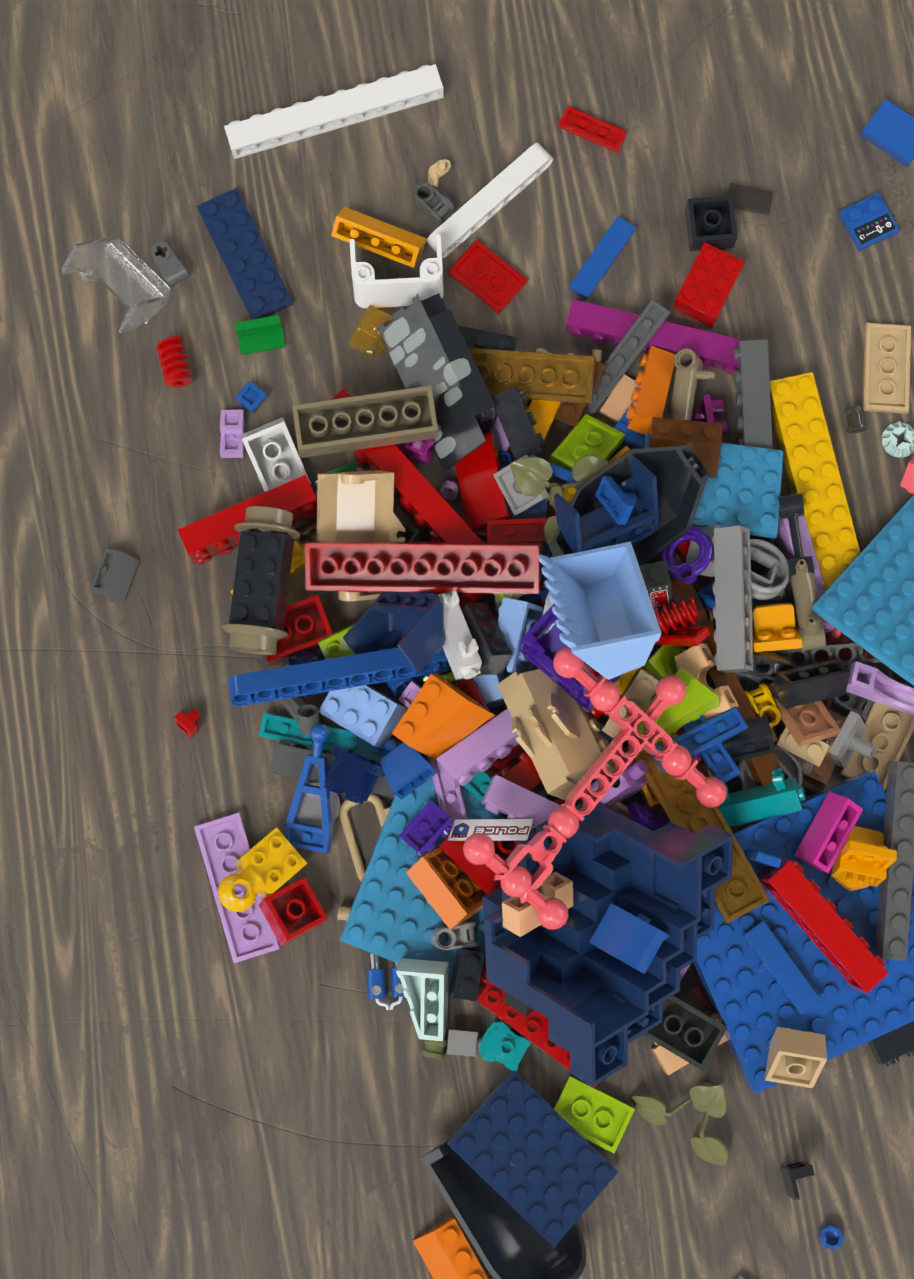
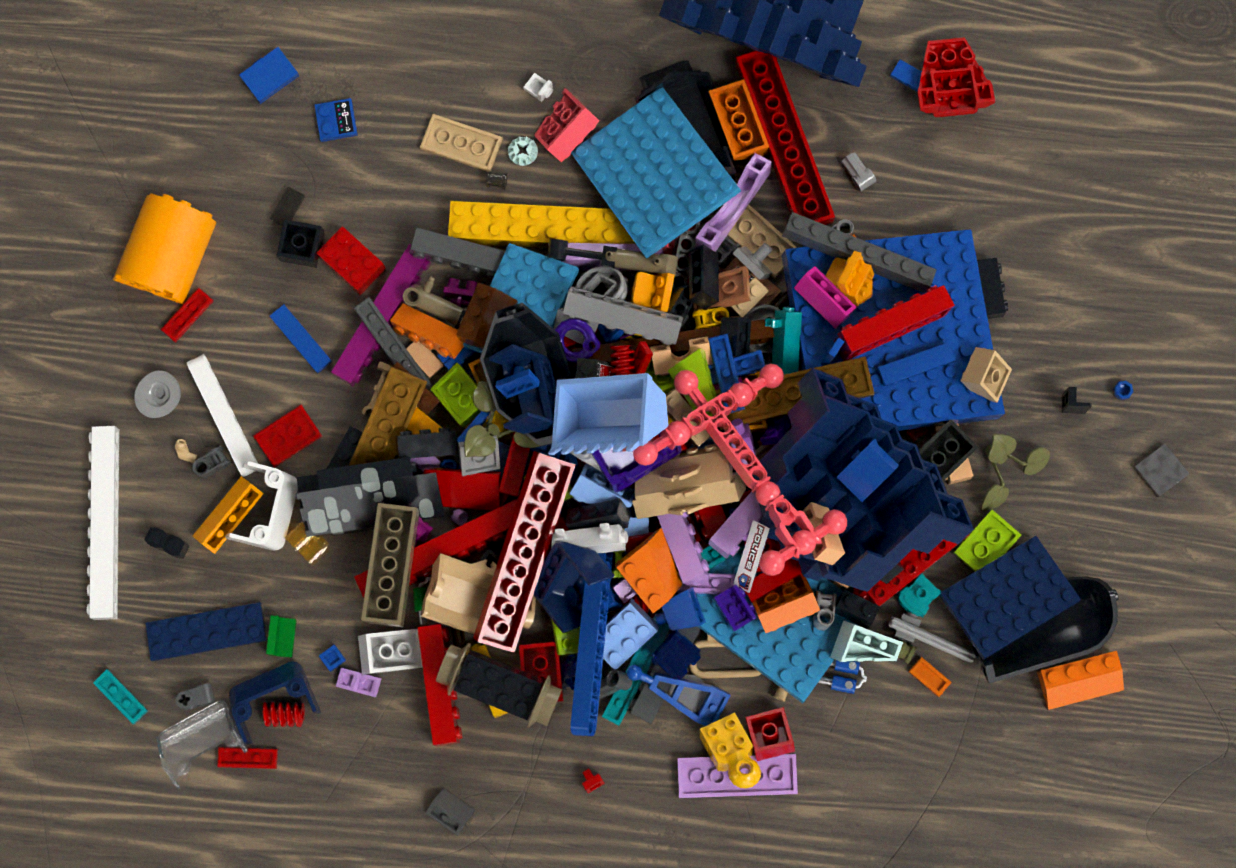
camera: 70 degrees left, 0 degrees up
(118, 343) = (251, 759): none -> red tile
(149, 186) = (120, 696): none -> teal plate
(216, 356) = (288, 675): none -> dark blue windscreen
(330, 182) = (169, 543): none -> black brick
(413, 1085) = (930, 677): none -> orange tile
(456, 1075) = (931, 639): none -> light grey axle
(492, 122) = (157, 394): none -> light grey hat
(661, 82) = (165, 248): none -> light orange cylinder

